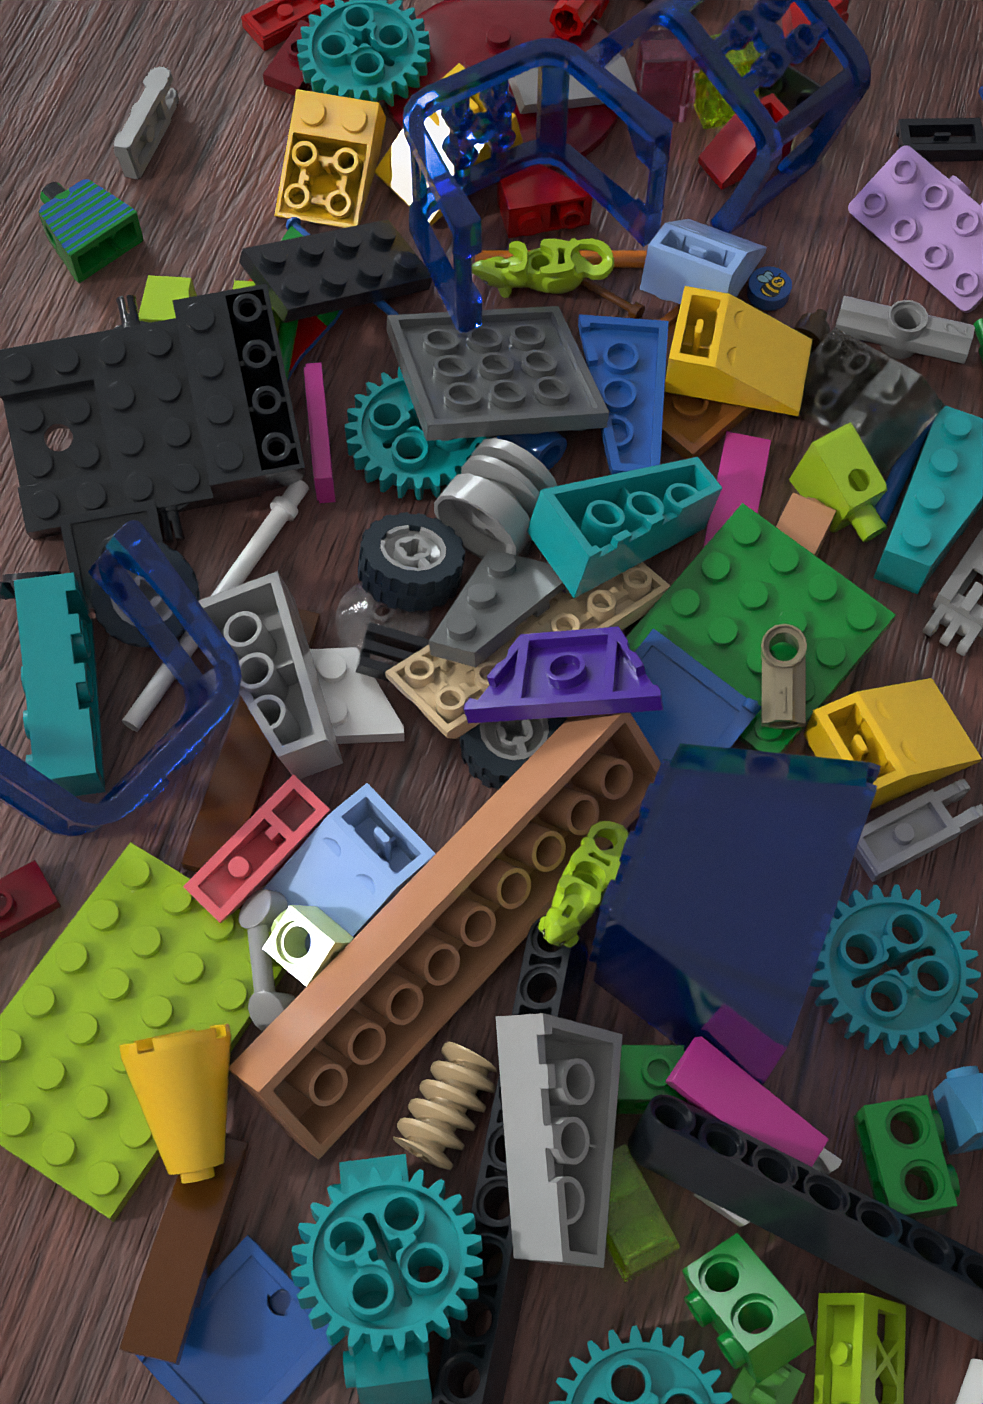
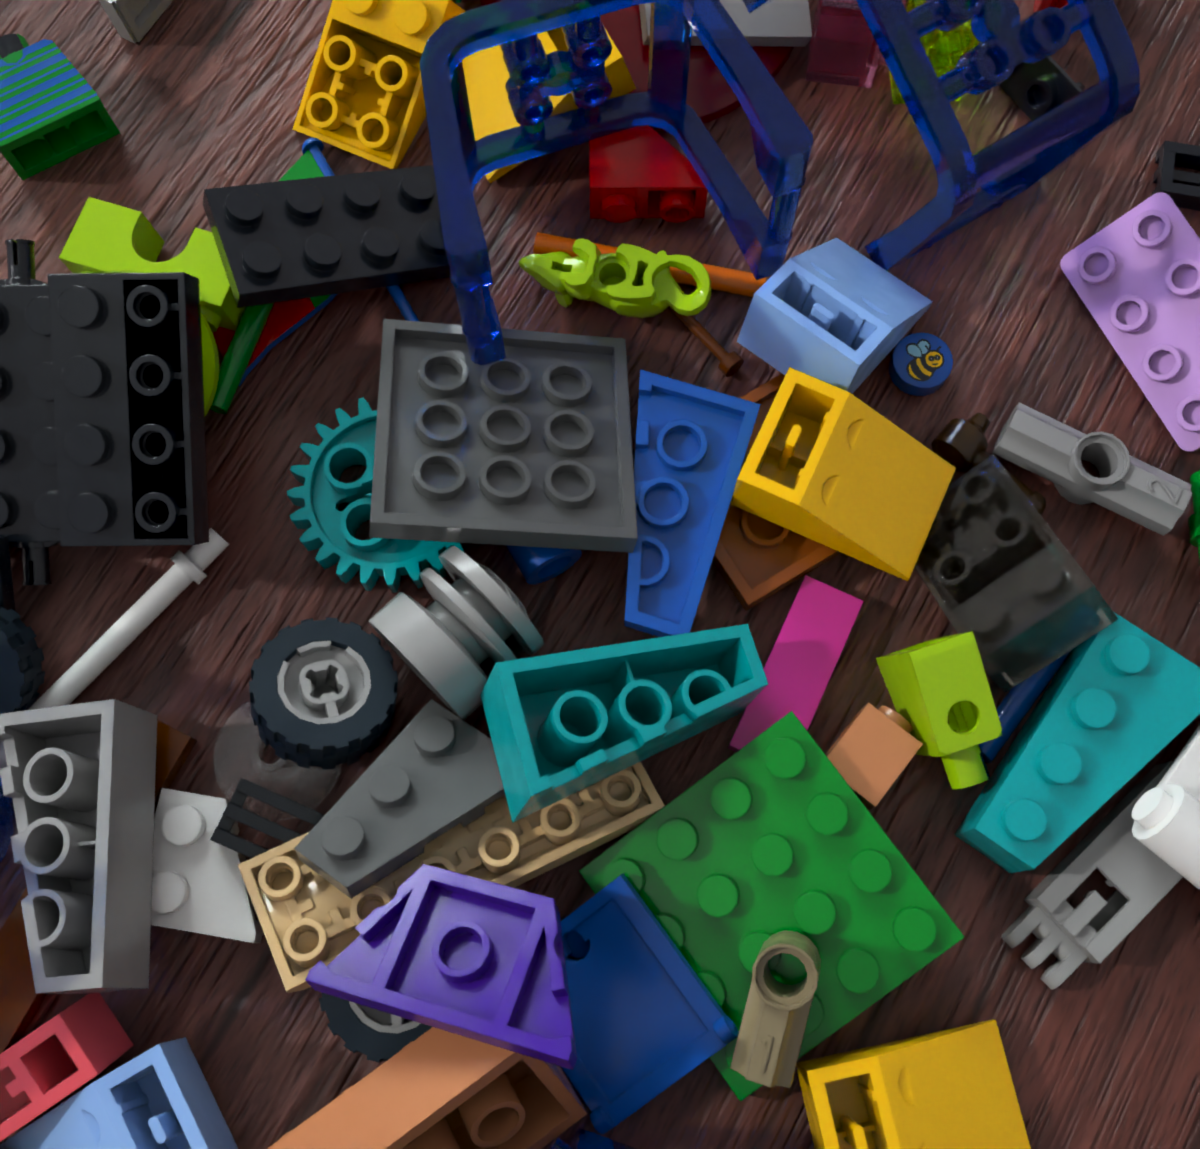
camera: 15 degrees right, 10 degrees up
(319, 433) = (259, 468): dark pink tile -> none
(734, 148) = (906, 160): red slope -> none

